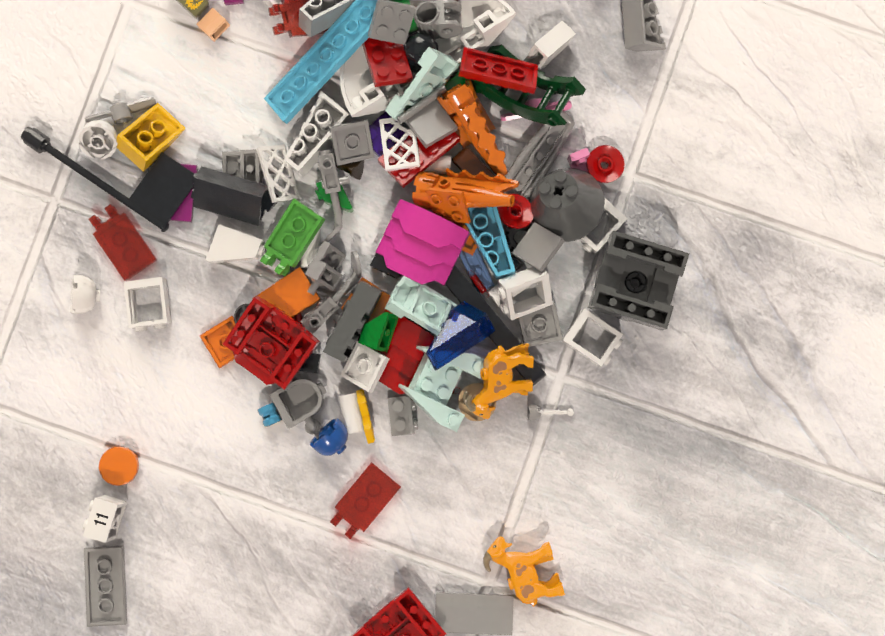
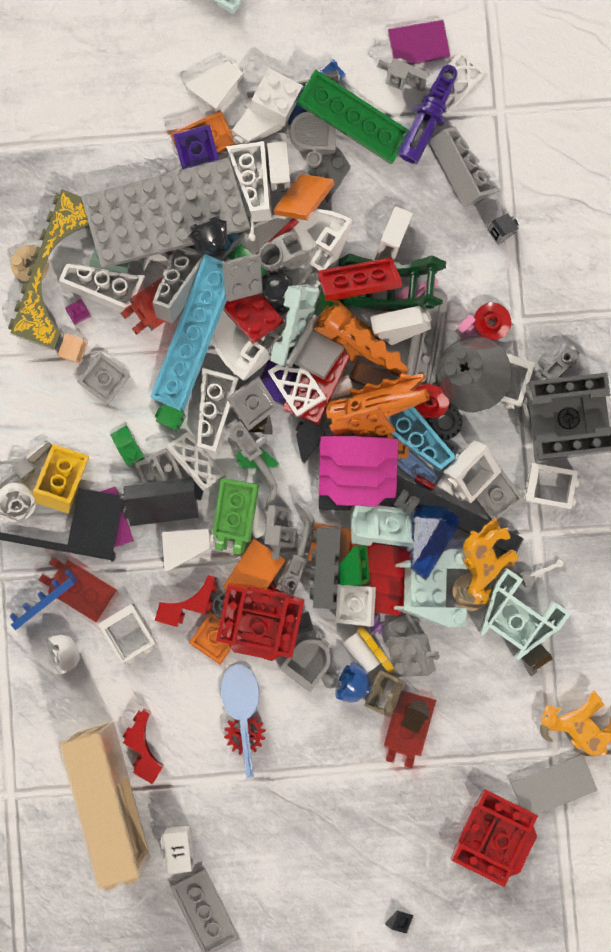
camera: 30 degrees left, 0 degrees up
(50, 448) = (106, 805): none -> tan panel
(85, 240) = (45, 600): none -> blue hinge
(112, 430) = (146, 766): none -> red arch
(119, 466) = (168, 796): orange tile -> none
(207, 447) = (253, 735): none -> red gear
(221, 409) = (240, 701): none -> piece
(223, 134) = (127, 446): none -> green slope
(224, 303) = (173, 613): none -> red arch
(229, 64) = (104, 378): none -> light grey plate
(269, 414) = (286, 687): dark azure wheel -> none
(273, 125) = (170, 417): none -> green slope
(355, 449) = (379, 683): none -> dark tan window
(375, 492) = (415, 716): none -> dark brown tile
(376, 395) = (377, 626): none -> medium lavender wheel
(388, 198) = (308, 437): none -> black slope
(396, 436) = (412, 655): none -> light grey plate
(455, 296) = (410, 504): none -> dark grey wheel
(507, 448) = (516, 620): none -> light aqua wedge
(508, 489) = (535, 659): none -> dark brown tile
(519, 129) = (401, 324): none -> white slope
(538, 247) = (466, 425): light grey tile -> none
(647, 232) = (551, 371): none -> light grey piece
(653, 83) = (503, 228): none -> black slope

